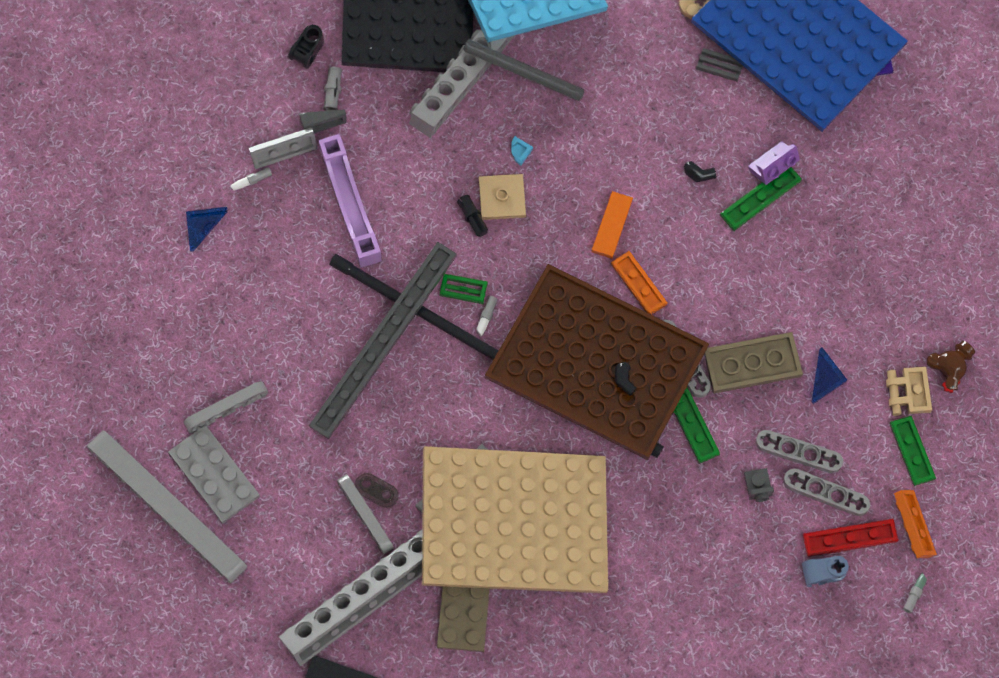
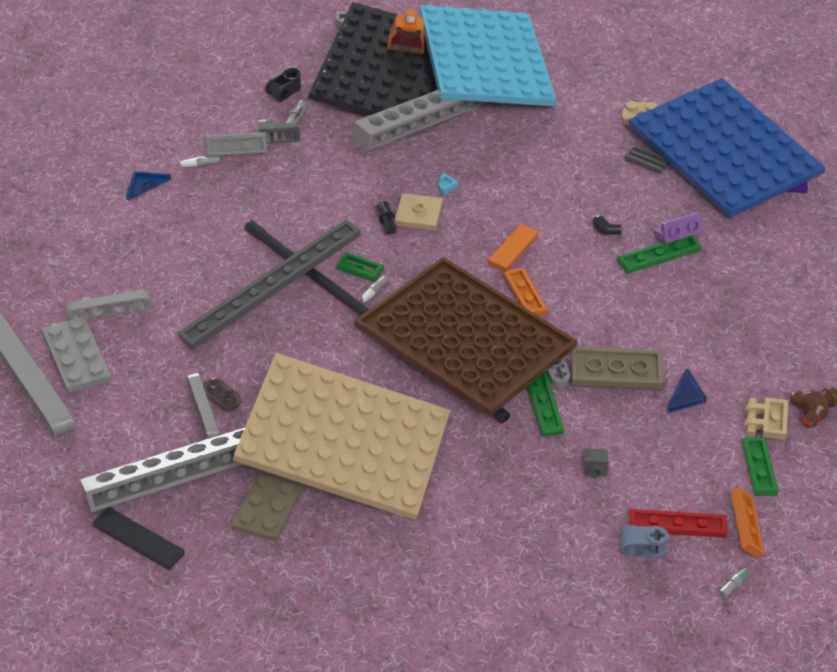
camera: 15 degrees right, 25 degrees down
(349, 201) = (279, 186): lavender arch -> none
(523, 70) = (466, 123): dark grey axle -> none
(621, 378) = (483, 344): black arm -> none
(798, 454) = (645, 442): light grey beam -> none
(827, 488) = (665, 479): light grey beam -> none

